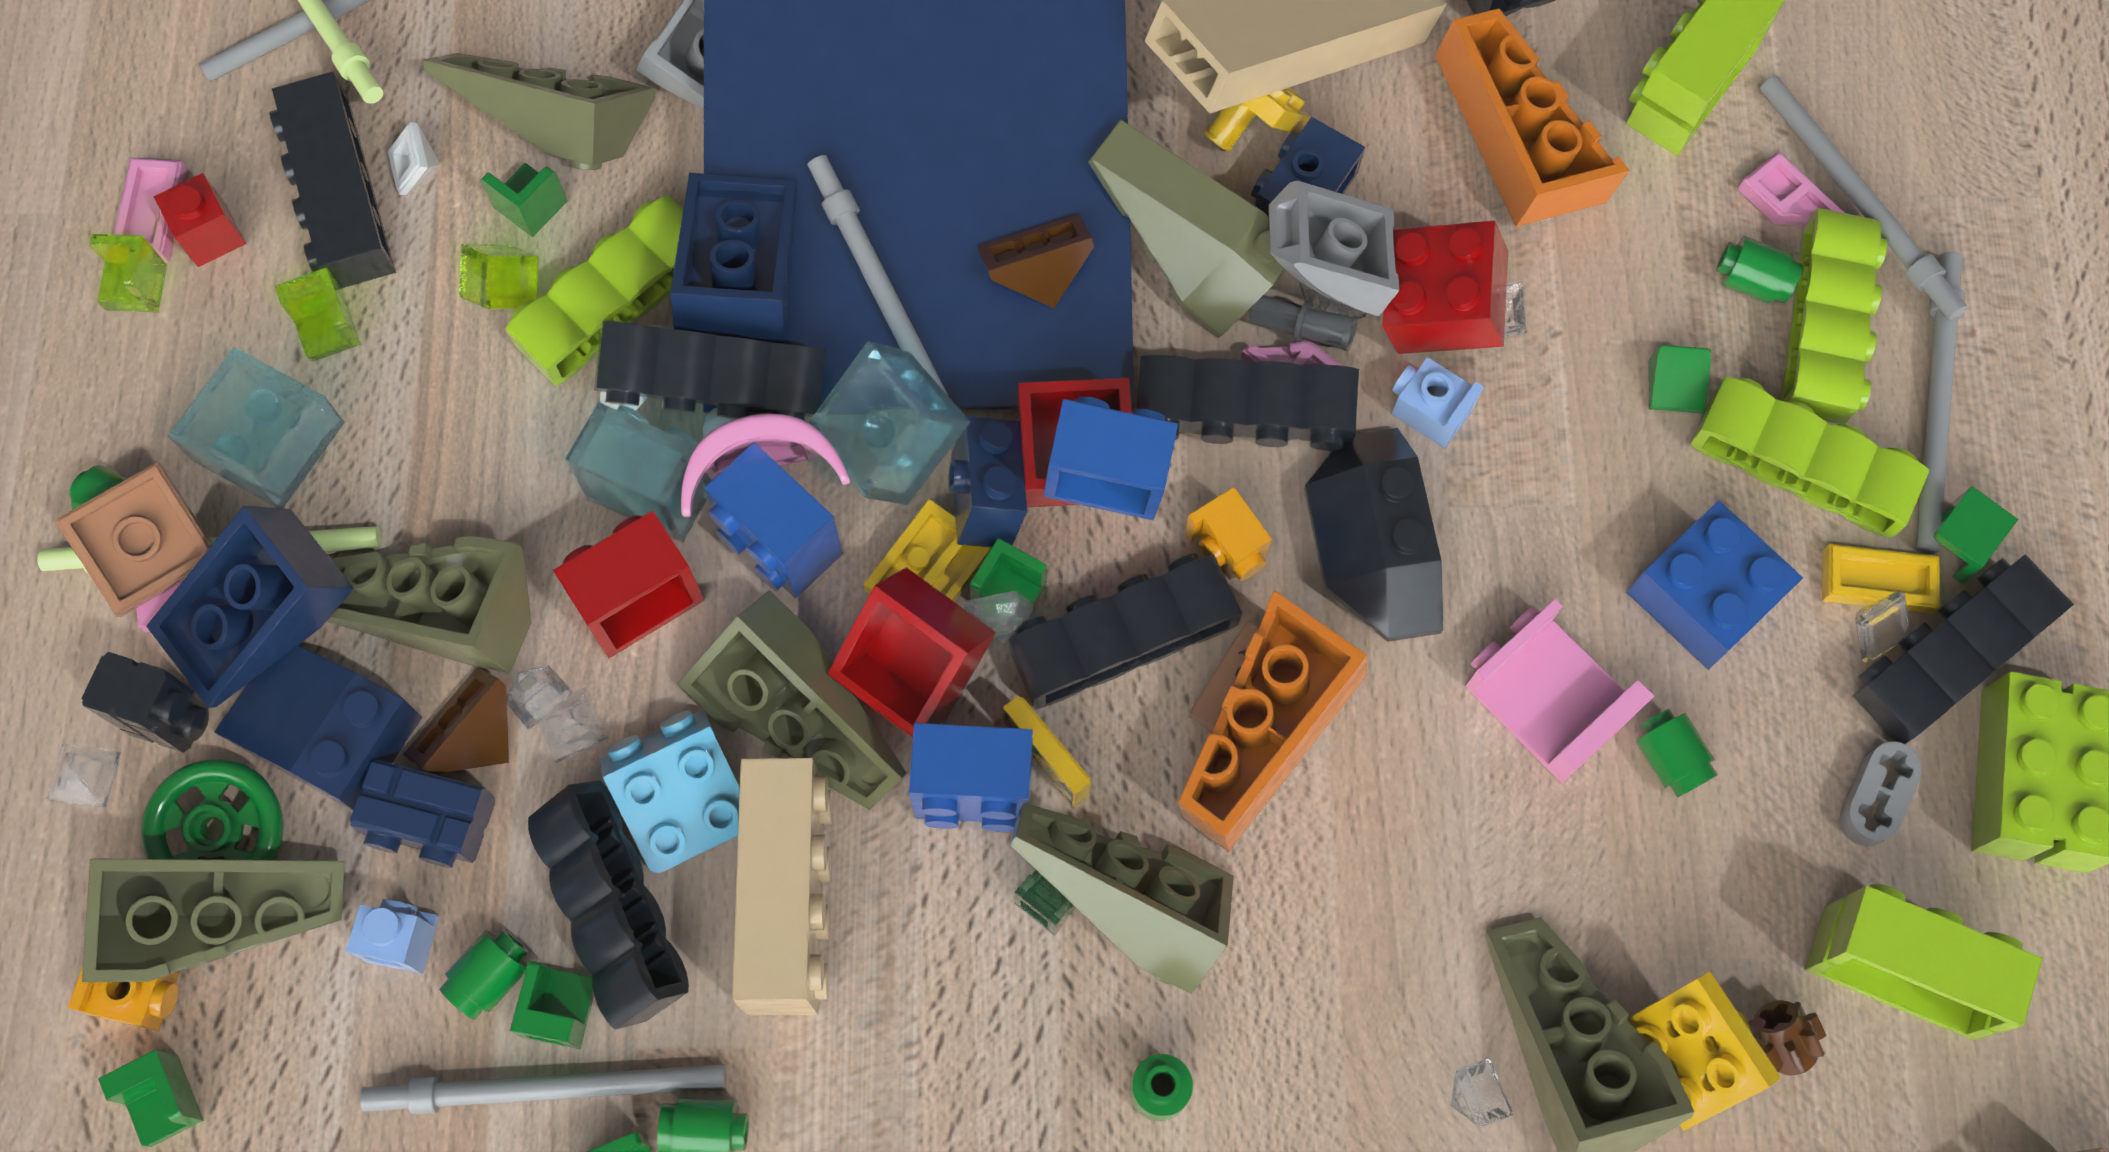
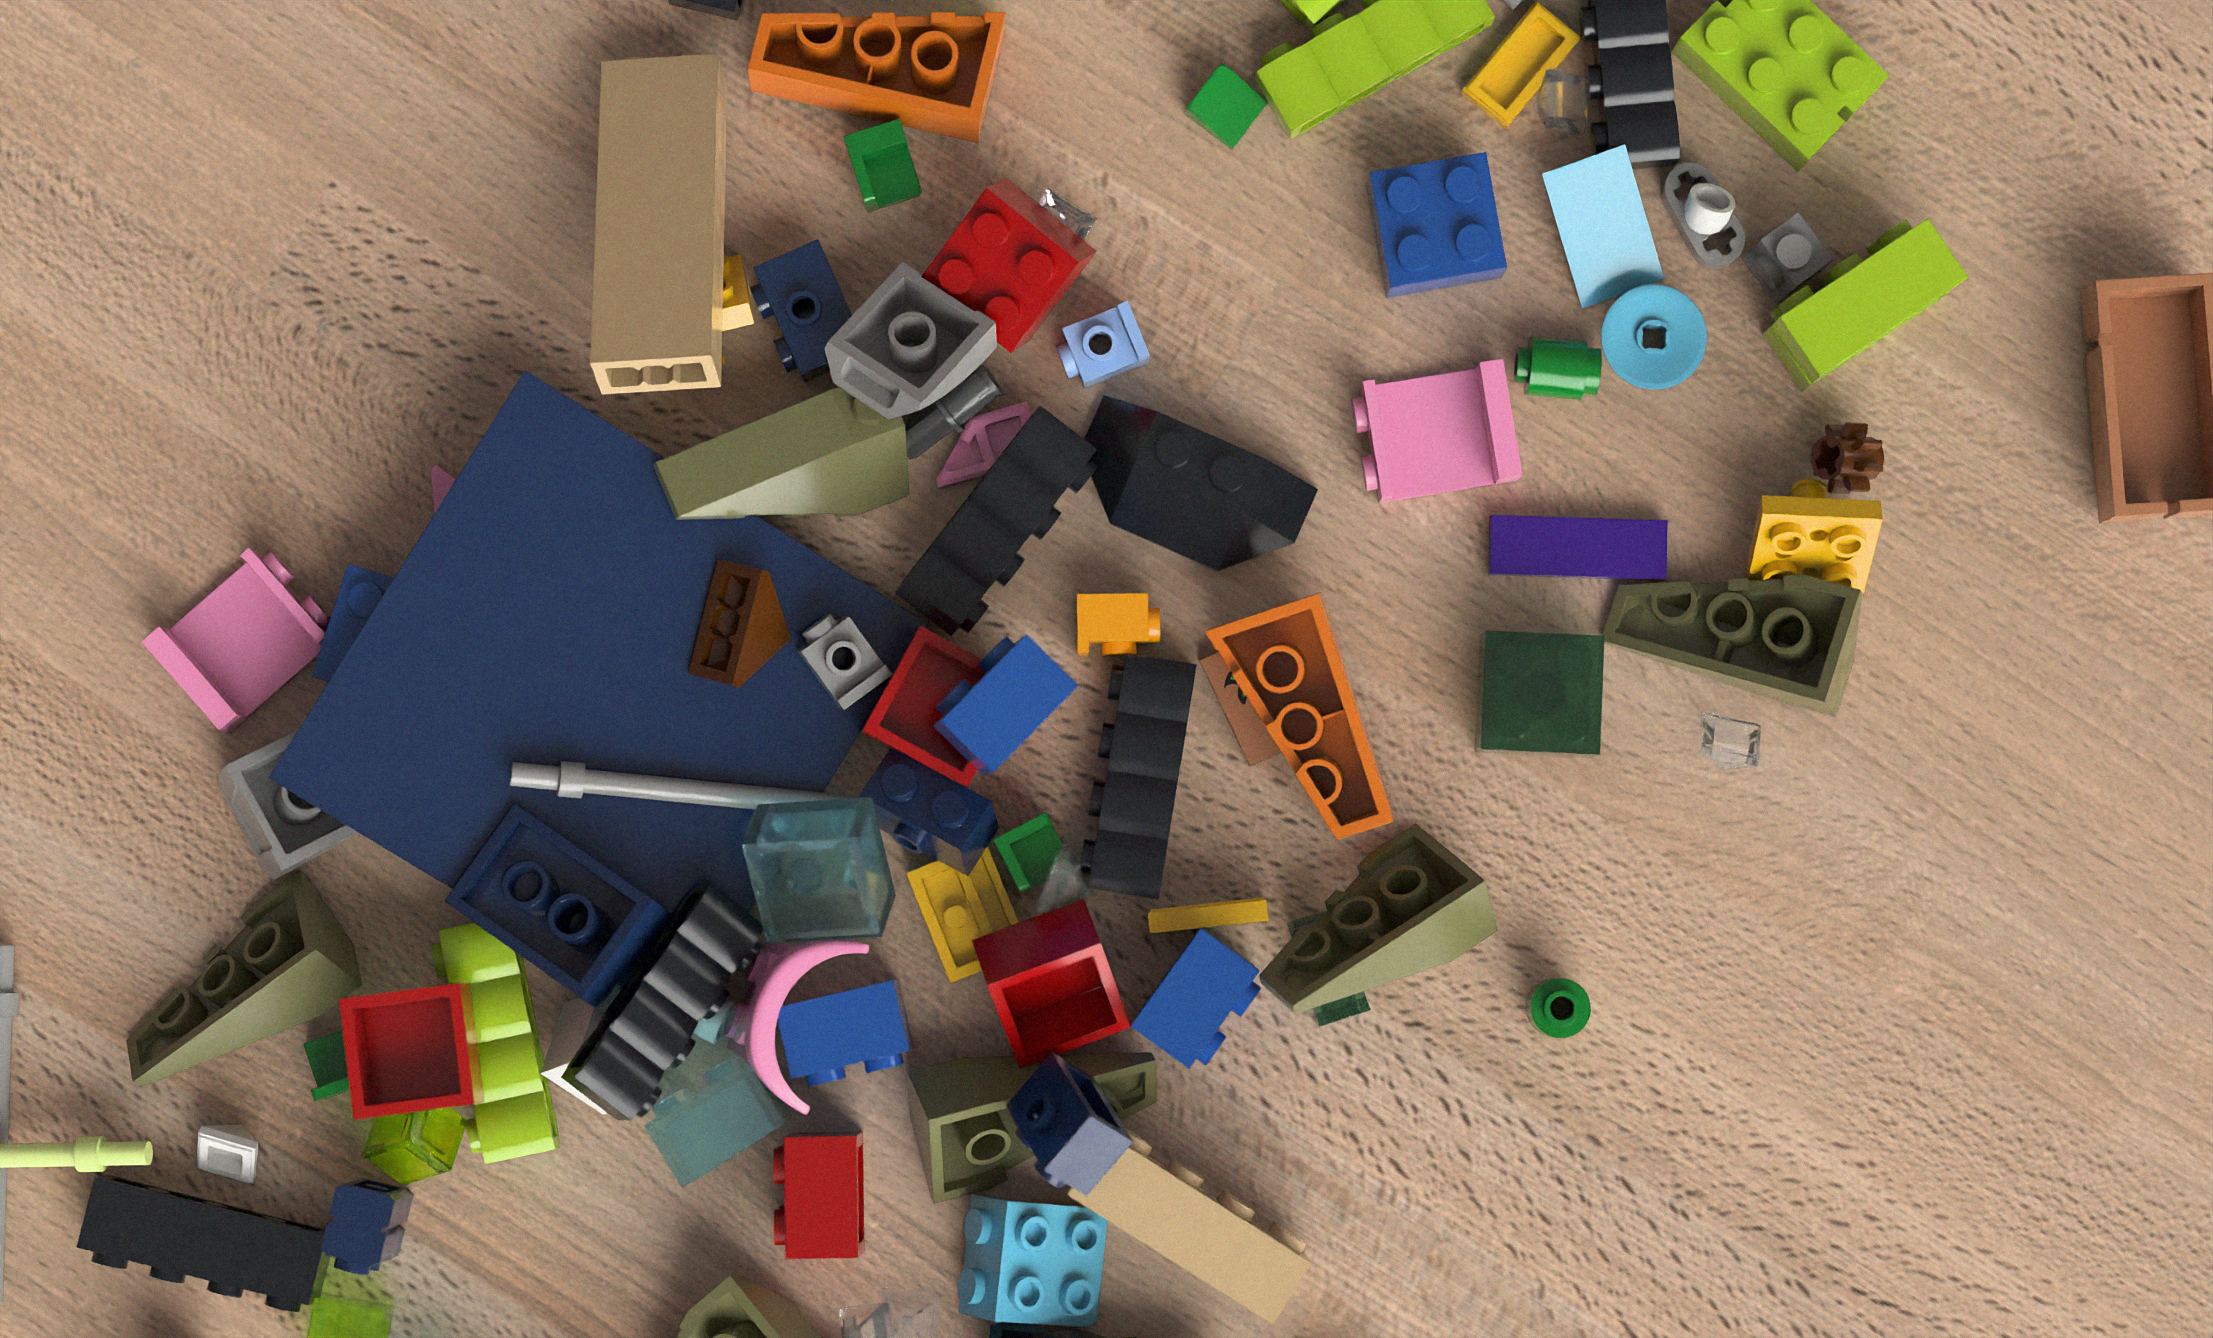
camera: 55 degrees left, 15 degrees up
(405, 270) = (366, 1225): none -> dark blue brick
(556, 208) = (411, 1050): none -> red piece
(799, 724) = (1068, 1125): none -> dark blue brick
(1054, 364) = (851, 683): none -> light grey brick
(1409, 903) = (1539, 694): none -> clear green brick
(1450, 168) = (883, 165): none -> green panel
(1547, 864) = (1577, 547): none -> dark purple tile
(1777, 798) = (1653, 309): none -> medium azure piece
(1813, 715) = (1603, 226): none -> sticker
(1894, 785) = (1708, 208): none -> white hinge
(1911, 869) = (1787, 258): none -> light grey brick

